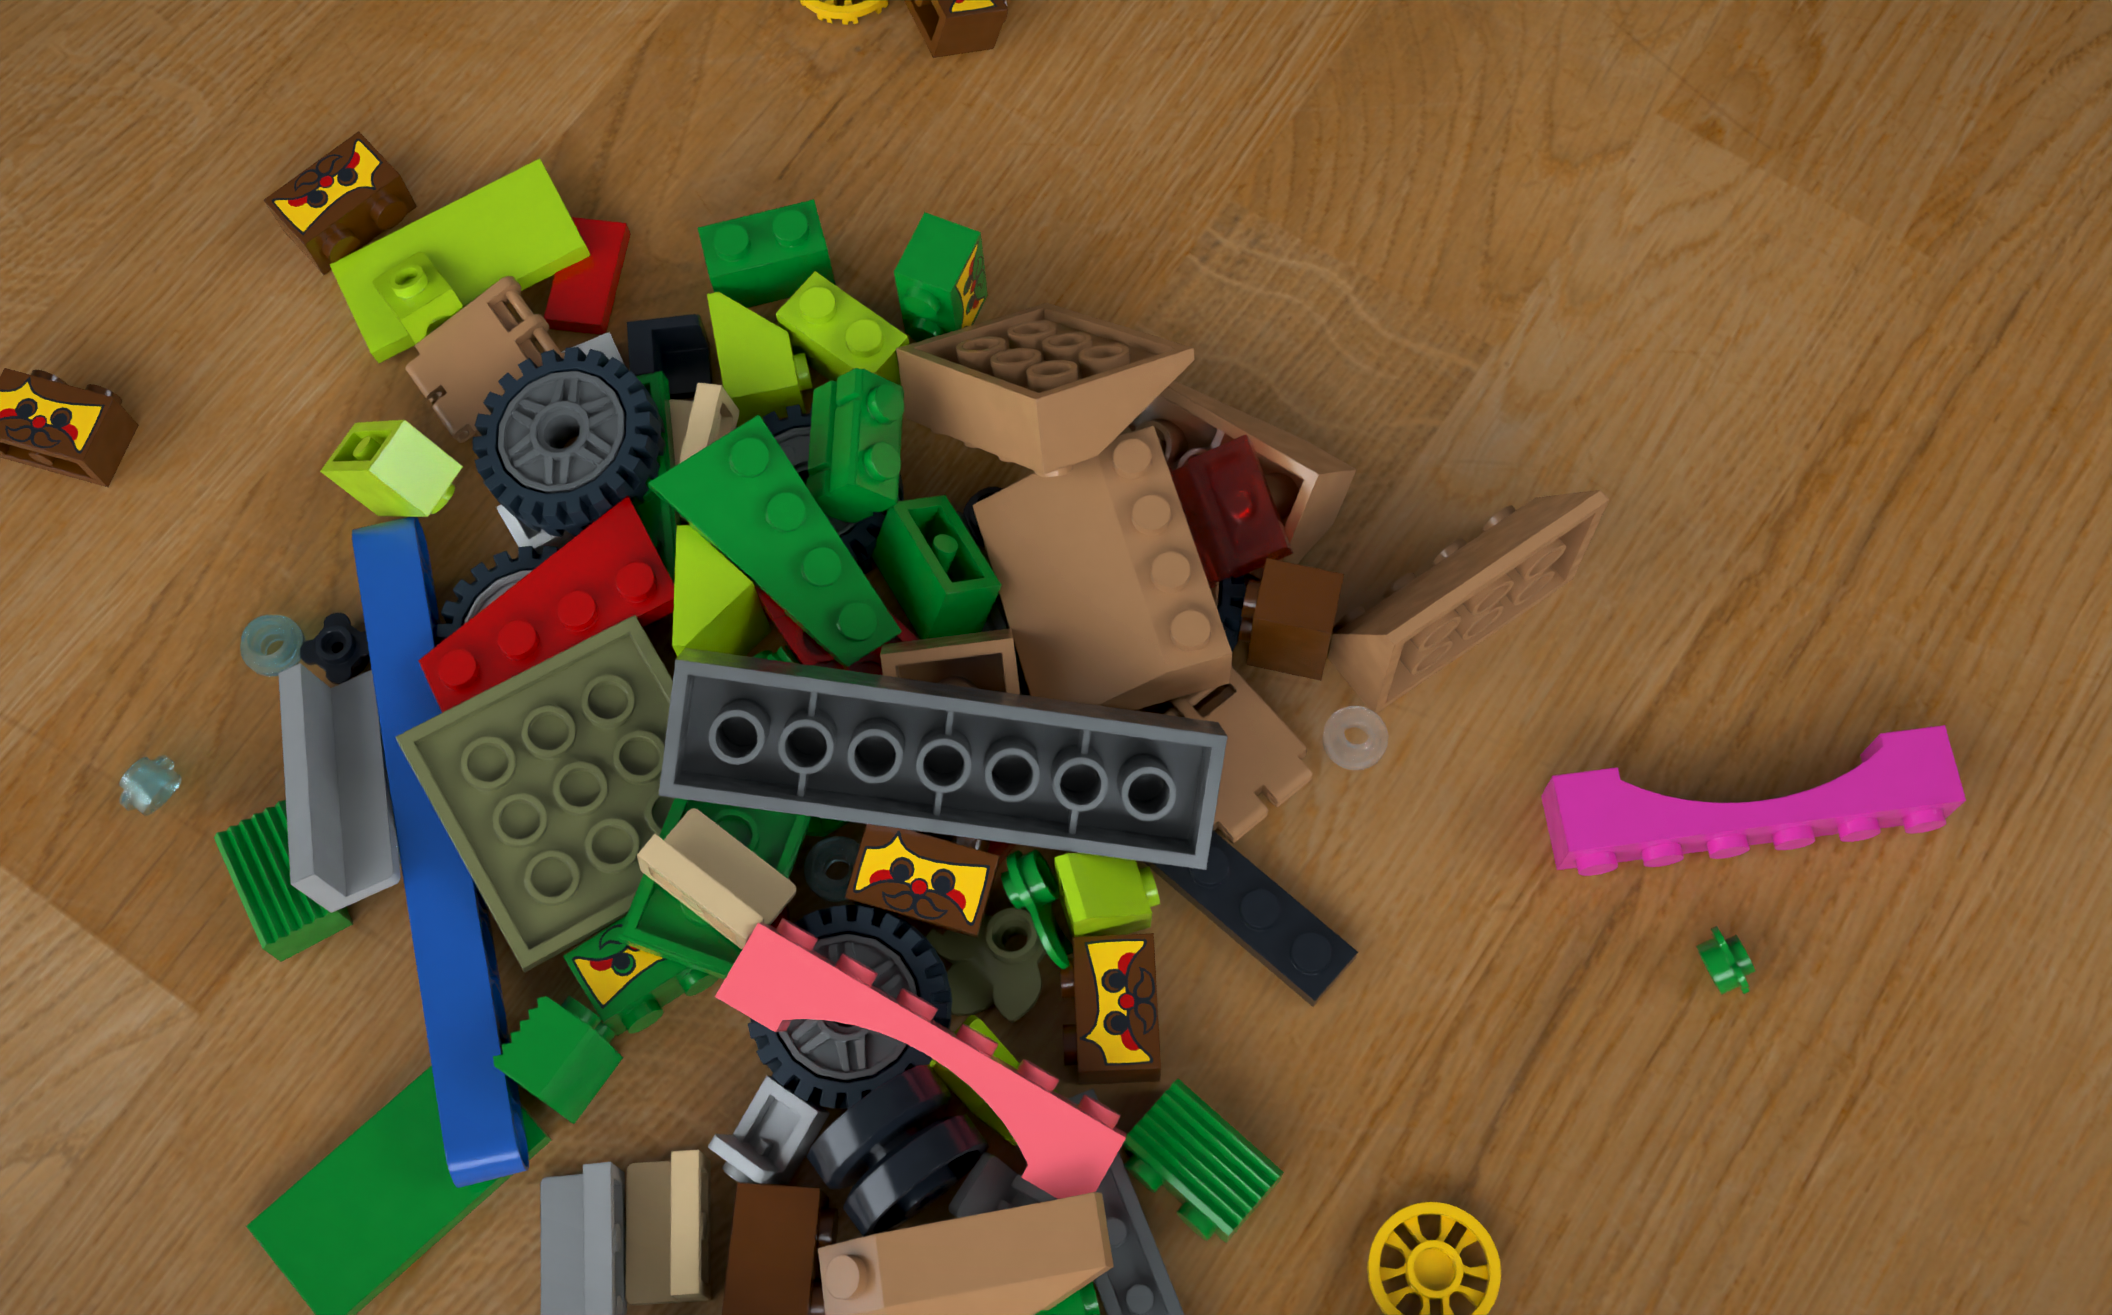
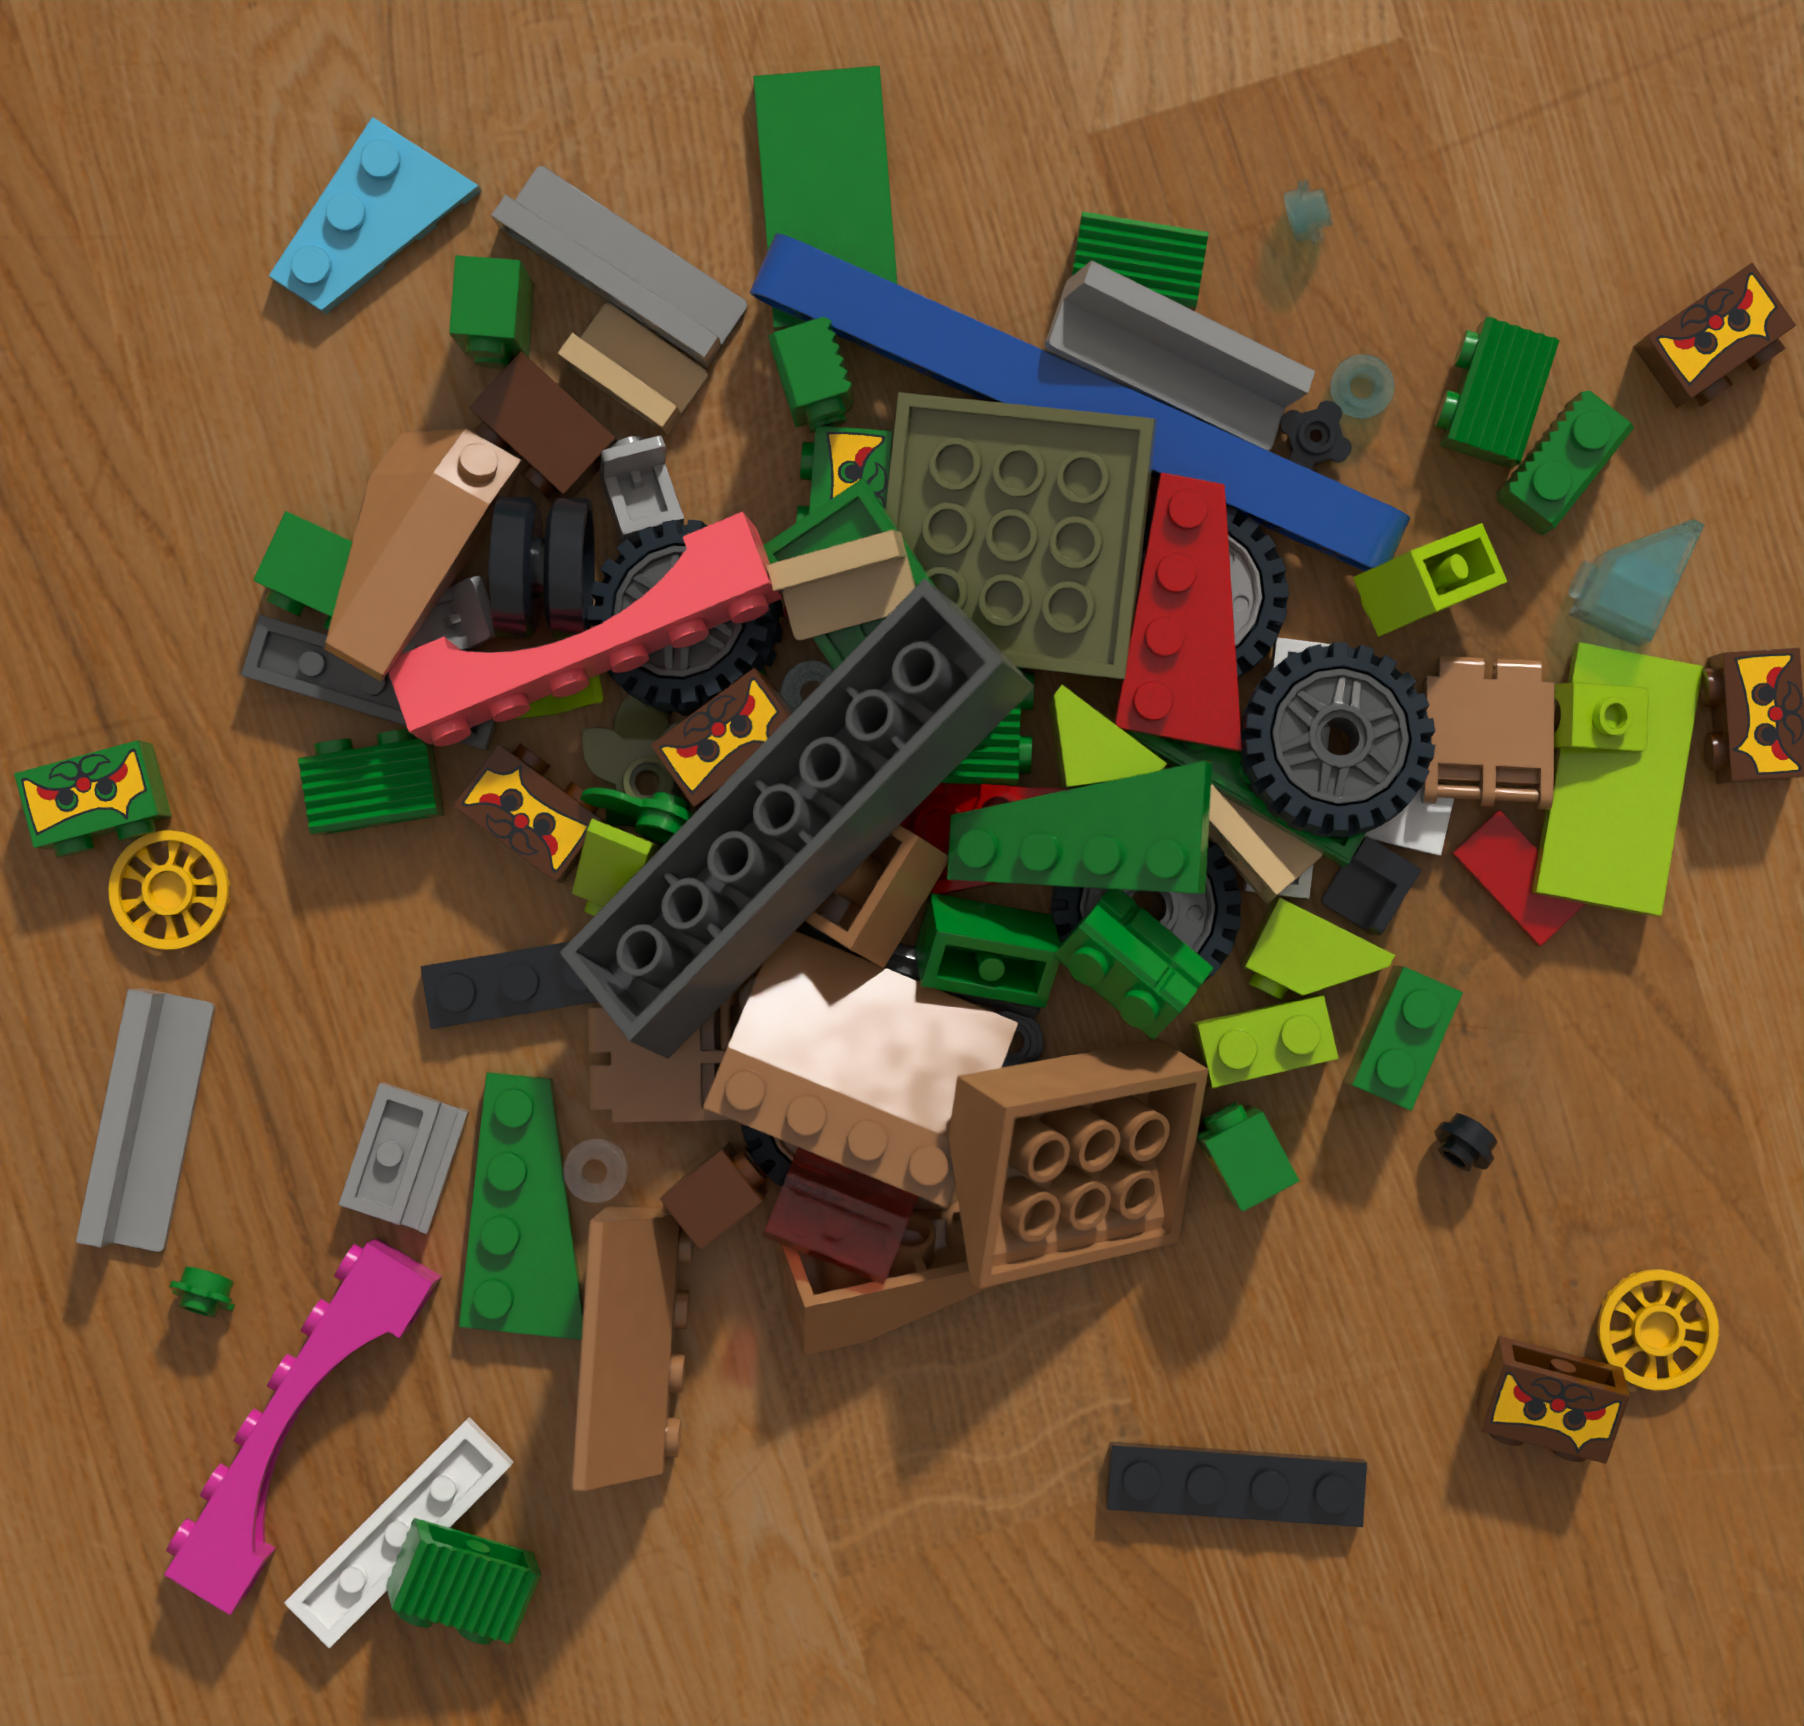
camera: 130 degrees right, 20 degrees up
(207, 542) = (1497, 392): none -> green brick
(232, 456) = (1564, 462): none -> green brick
(293, 346) = (1633, 583): none -> clear light blue slope
(812, 169) = (1466, 1143): none -> black plate
(1186, 145) = (1236, 1484): none -> black plate
(1448, 762) = (520, 1231): none -> green wing
(1477, 891) = (404, 1157): none -> light grey plate
(1633, 1126) = (146, 1120): none -> light grey panel
(1751, 579) = (462, 1582): none -> green brick
(1760, 664) = (361, 1566): none -> white plate

